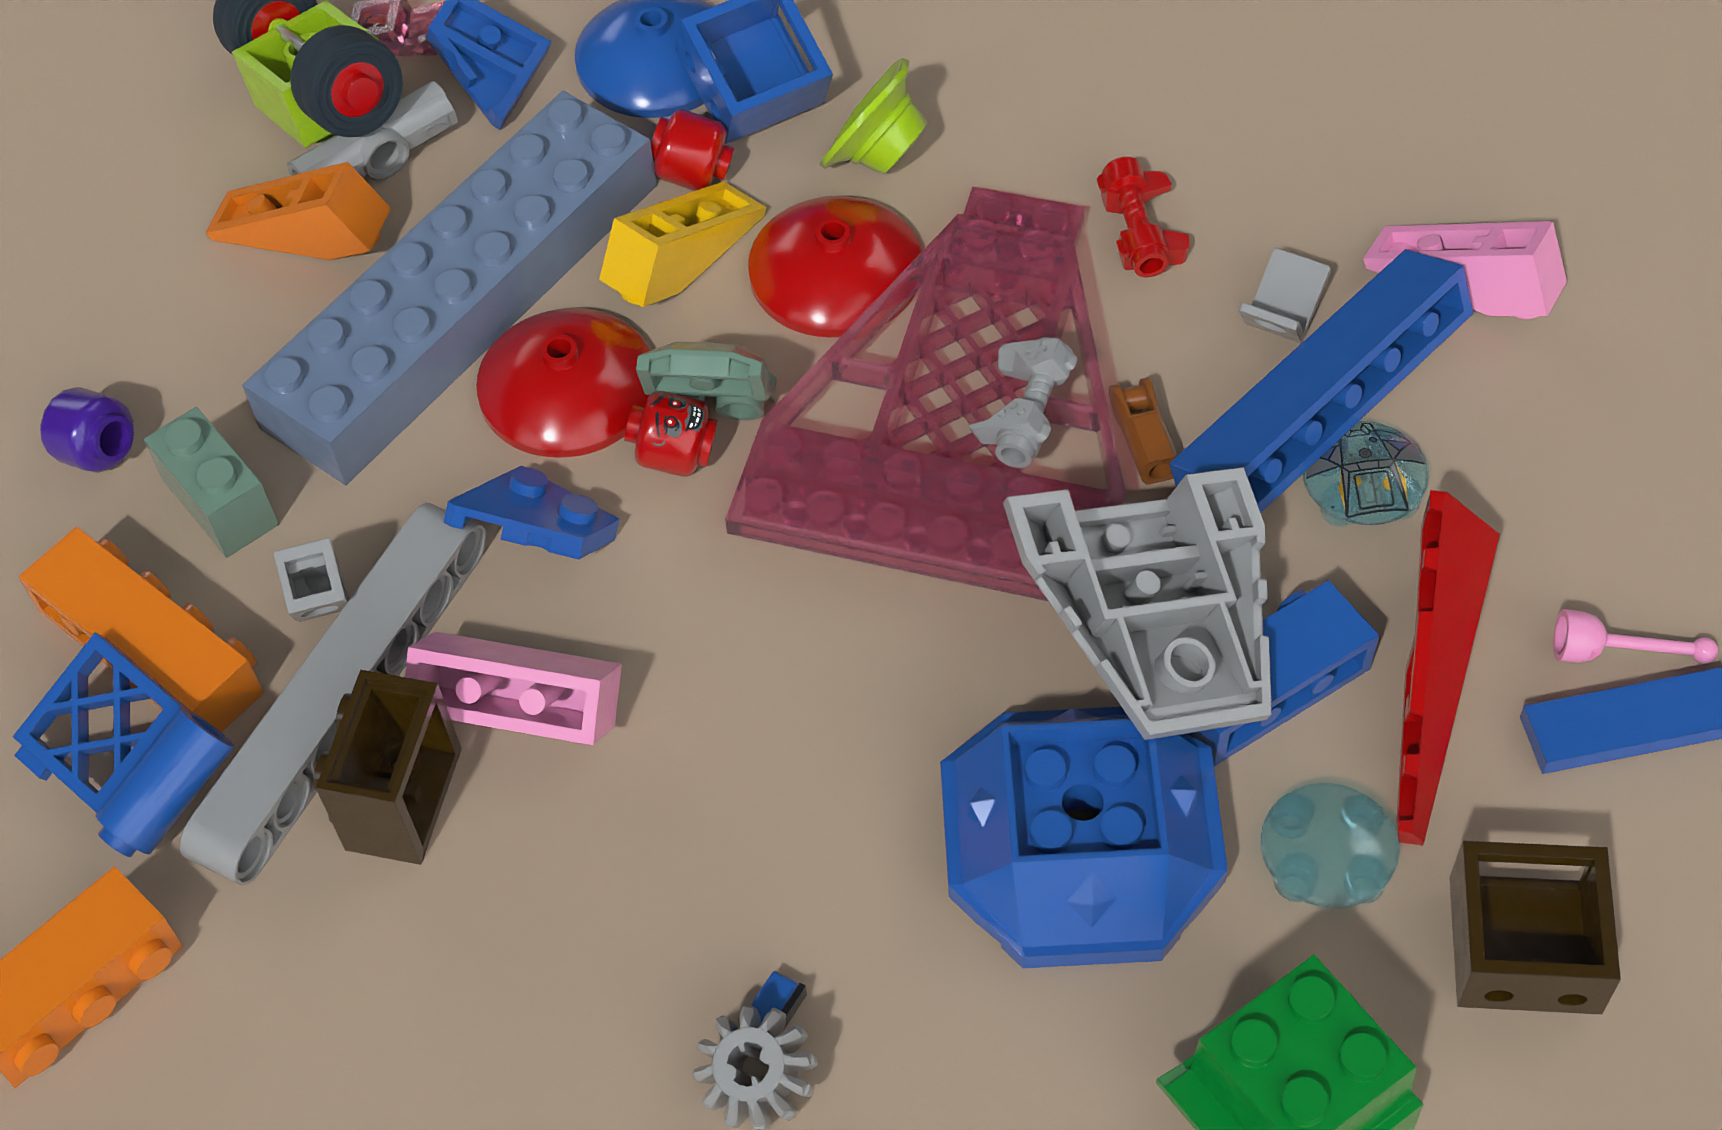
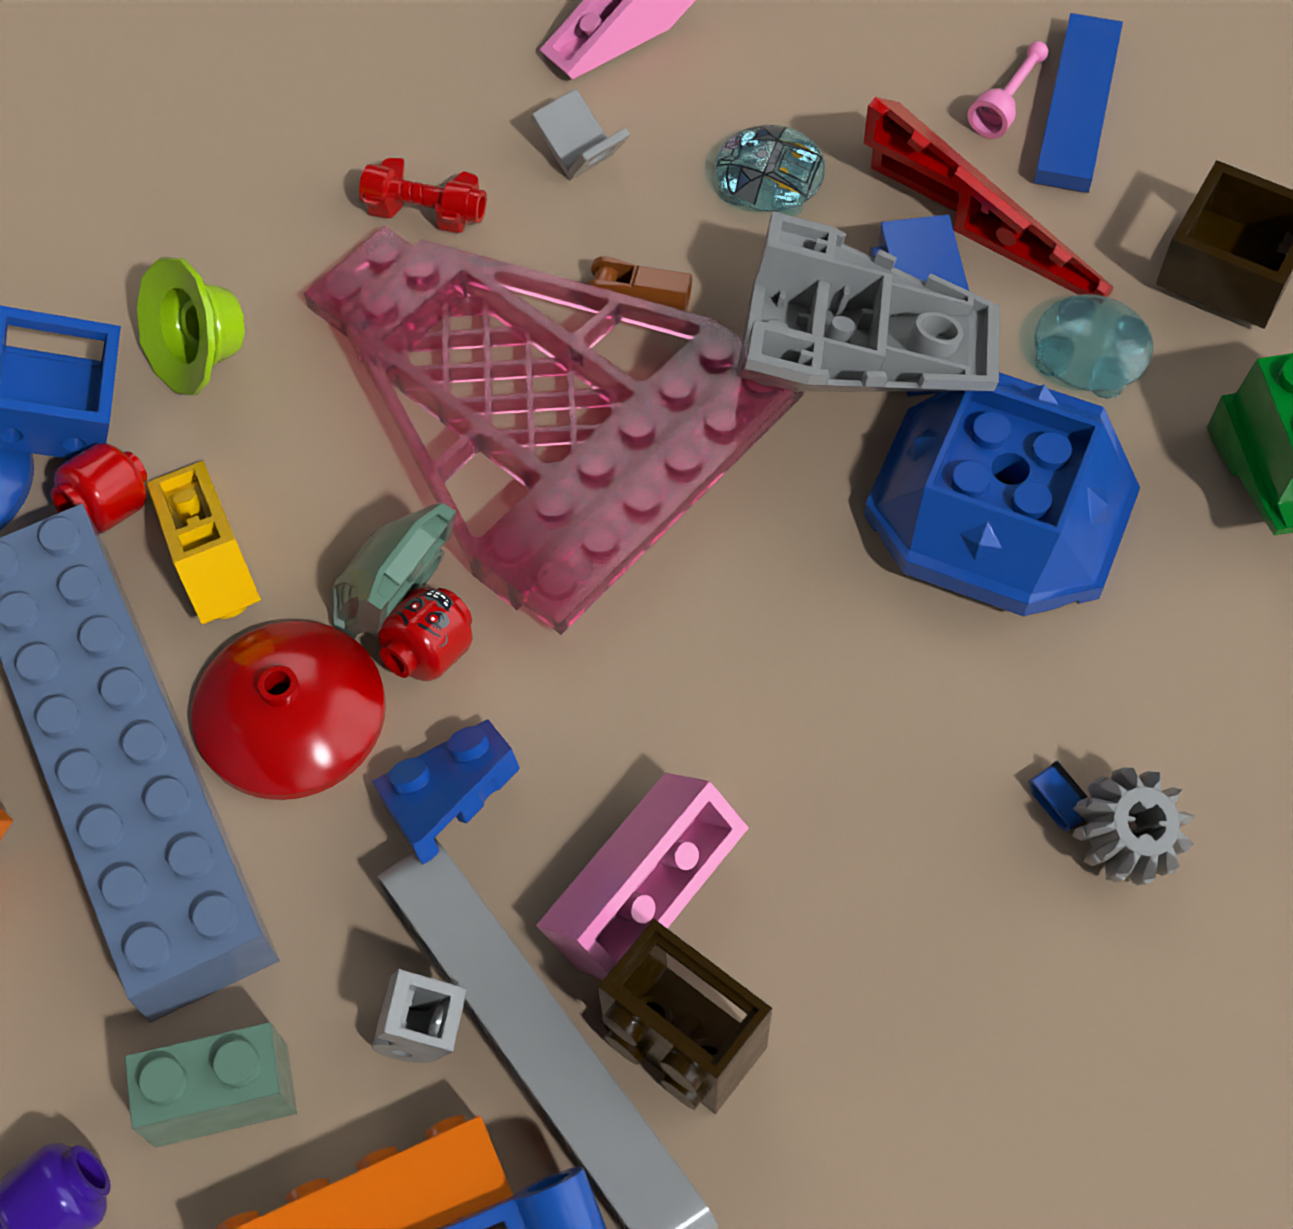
camera: 65 degrees left, 5 degrees up
(828, 262) = (309, 458): red dish -> none
(1021, 424) = (613, 351): light grey piece -> none
(1334, 376) = (686, 149): blue brick -> none

